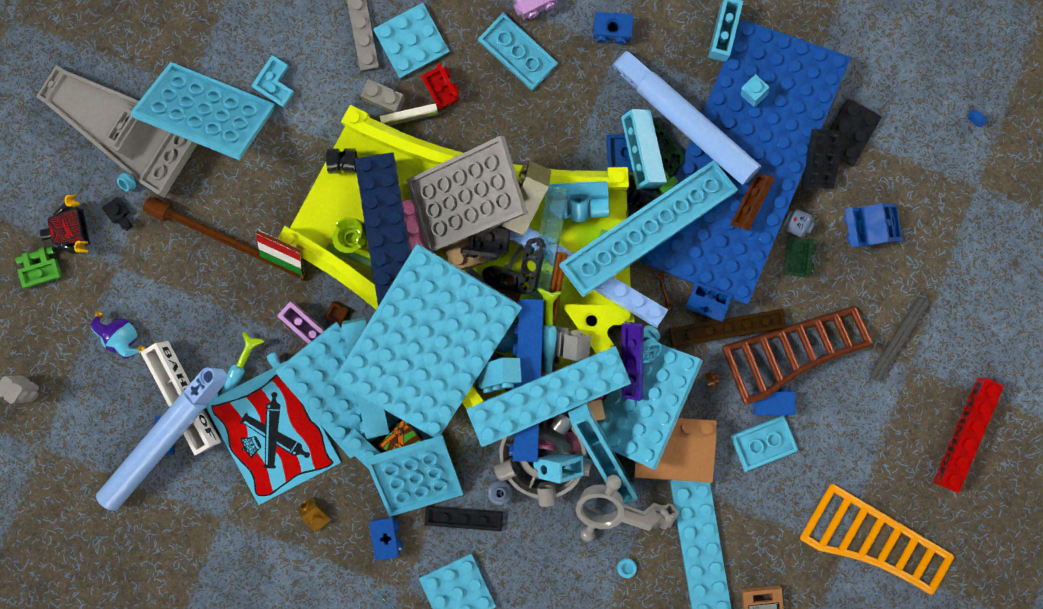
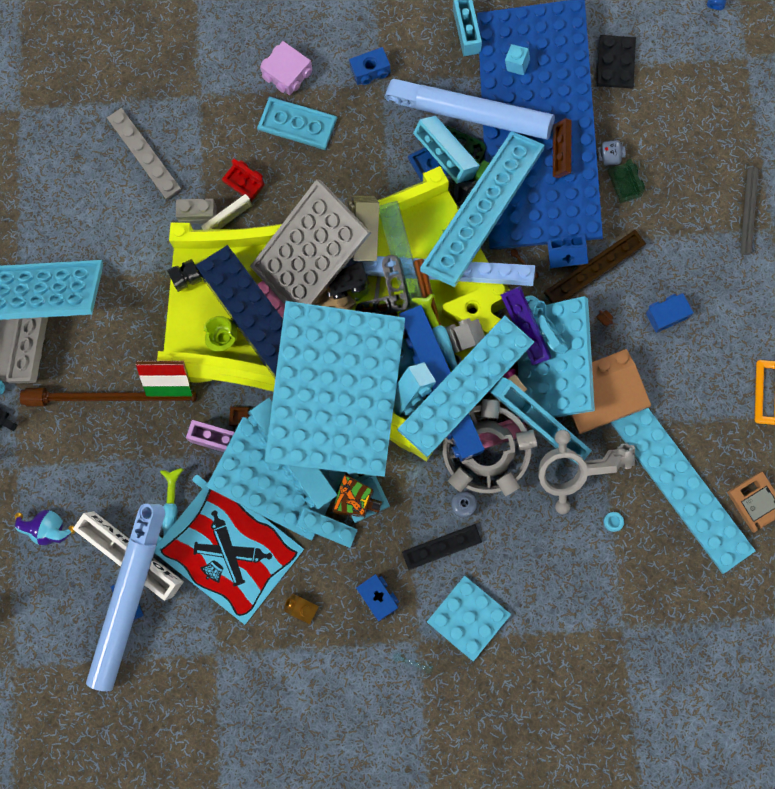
camera: 20 degrees left, 10 degrees down
(269, 82) = (89, 245): medium azure plate -> none
(353, 256) = (232, 353): clear light blue bar -> none
(411, 40) = (199, 155): medium azure plate -> none
(415, 476) = (379, 523): medium azure plate -> none
(550, 467) = (506, 447): medium azure torso -> none
(585, 200) = (419, 209): medium azure panel -> none
(652, 374) = (548, 329): none -> medium azure plate
(764, 443) = (679, 353): medium azure tile -> none
(796, 370) = (674, 273): copper bar -> none
(822, 158) = (604, 89): black plate -> none
(873, 225) = (675, 124): blue bracket -> none

